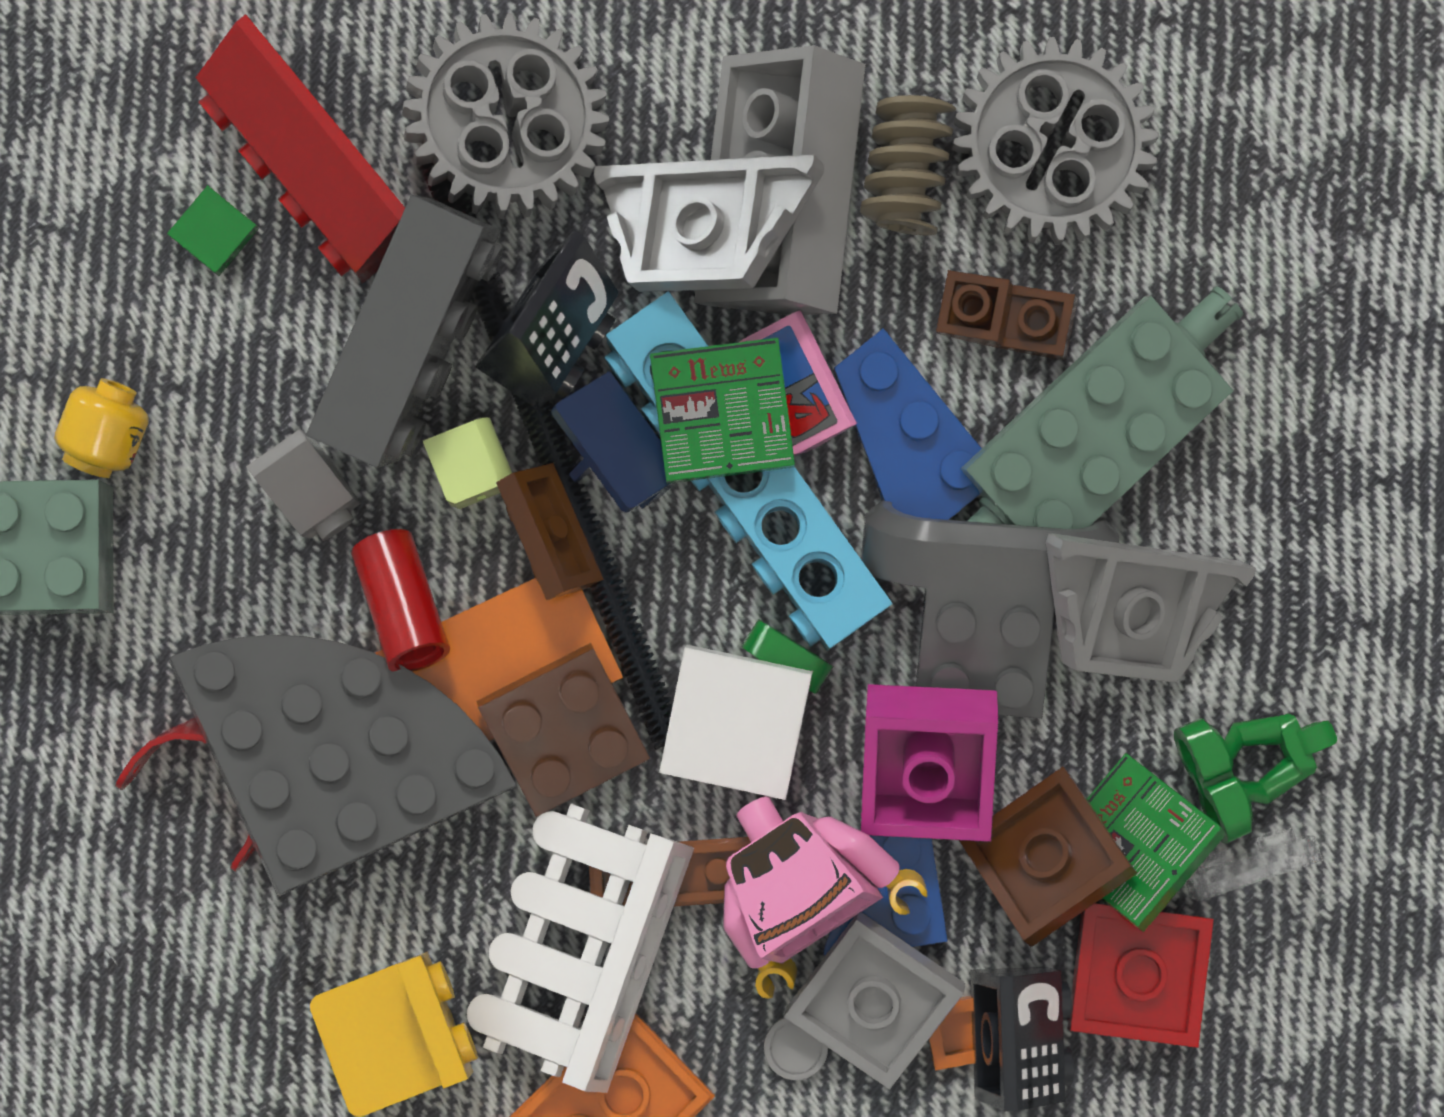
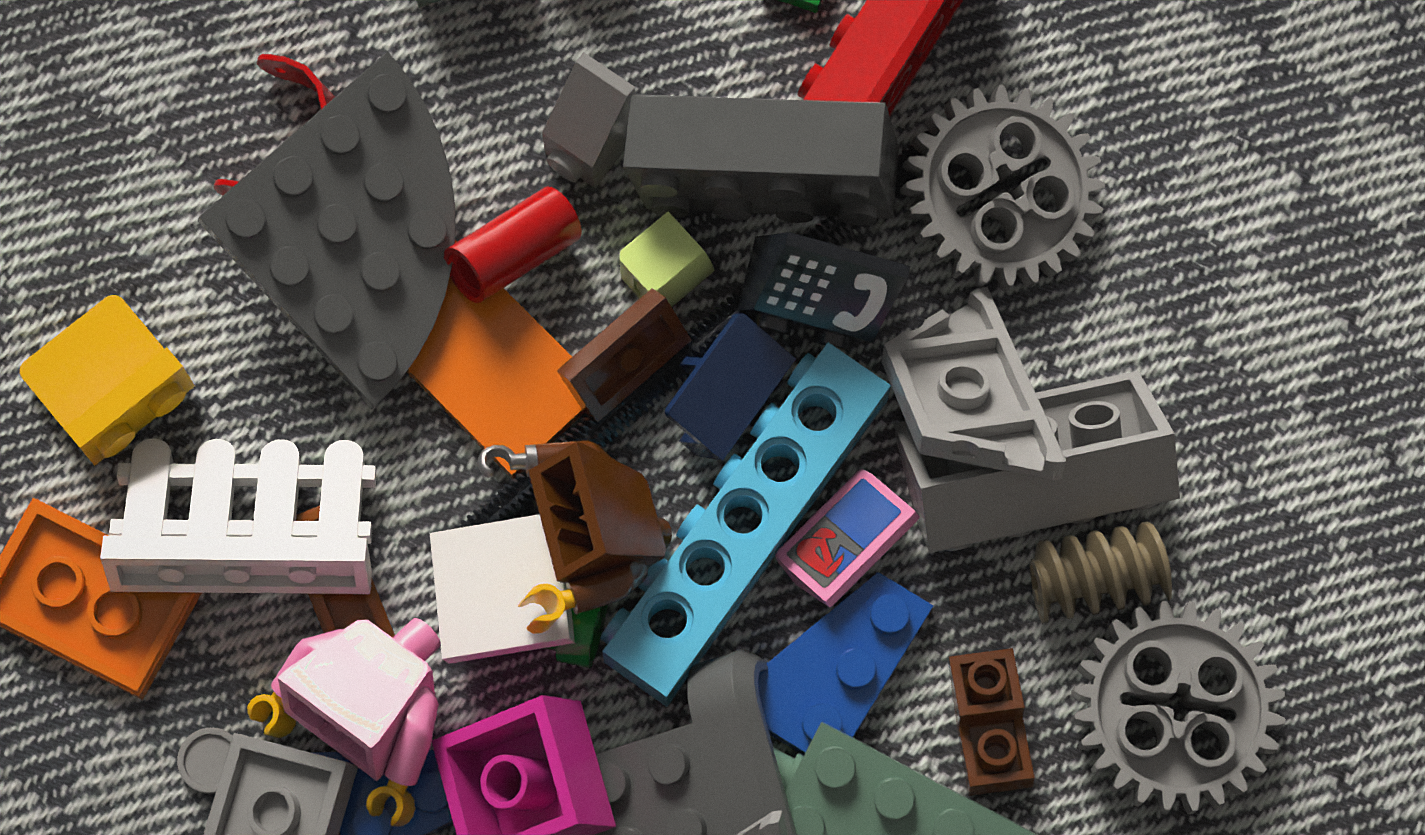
camera: 75 degrees right, 10 degrees down
(563, 730) = (435, 432): reddish brown plate -> none
(707, 613) = (594, 522): none -> reddish brown torso
(722, 410) = (793, 470): green tile -> none

